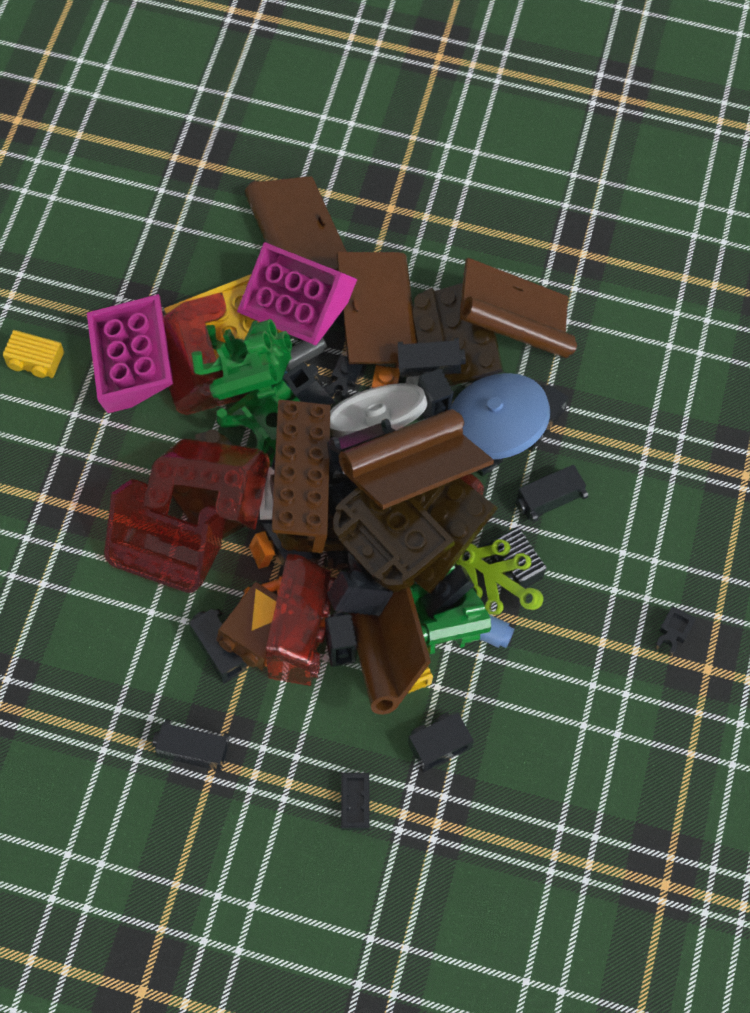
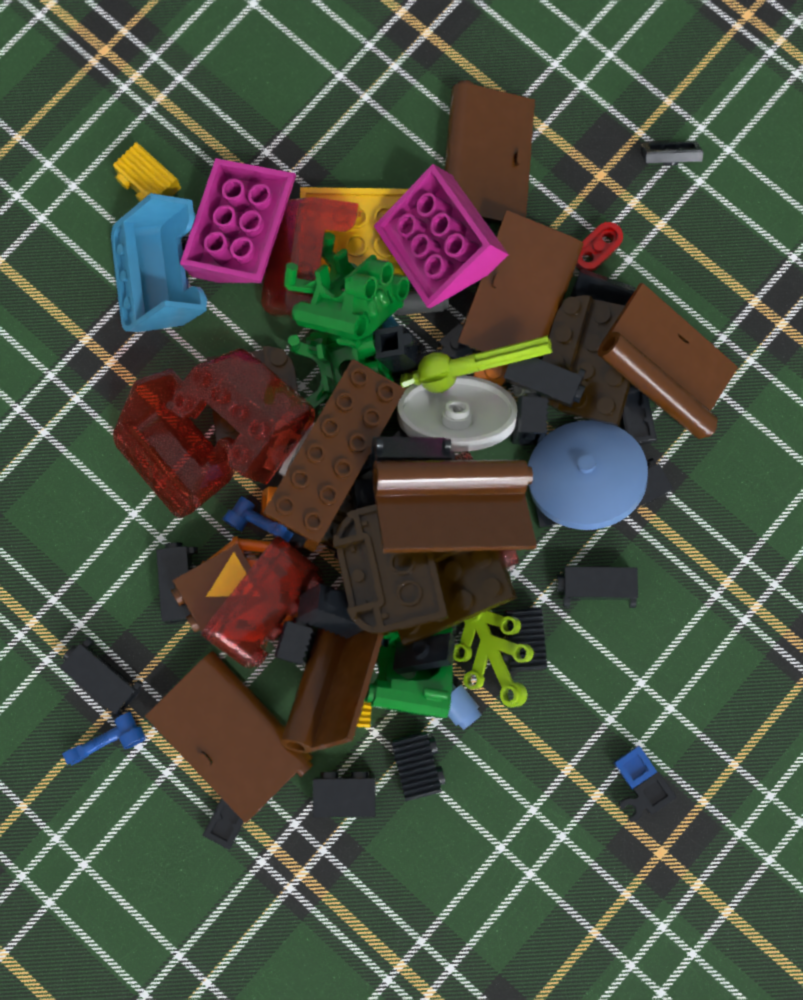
camera: 30 degrees right, 15 degrees up
(71, 415) = (148, 266): none -> dark azure windscreen
(233, 779) = (125, 730): none -> blue brick
(243, 567) = (243, 513): none -> blue brick
(323, 740) = (234, 728): none -> reddish brown door
(346, 389) = (439, 371): none -> lime piece
(416, 258) = (597, 248): none -> red plate
(436, 169) = (671, 152): none -> black plate
(436, 281) = (602, 288): none -> black plate
(485, 690) = (417, 765): none -> black brick
(513, 360) = (638, 418): none -> black plate
(652, 612) = (635, 767): none -> blue plate

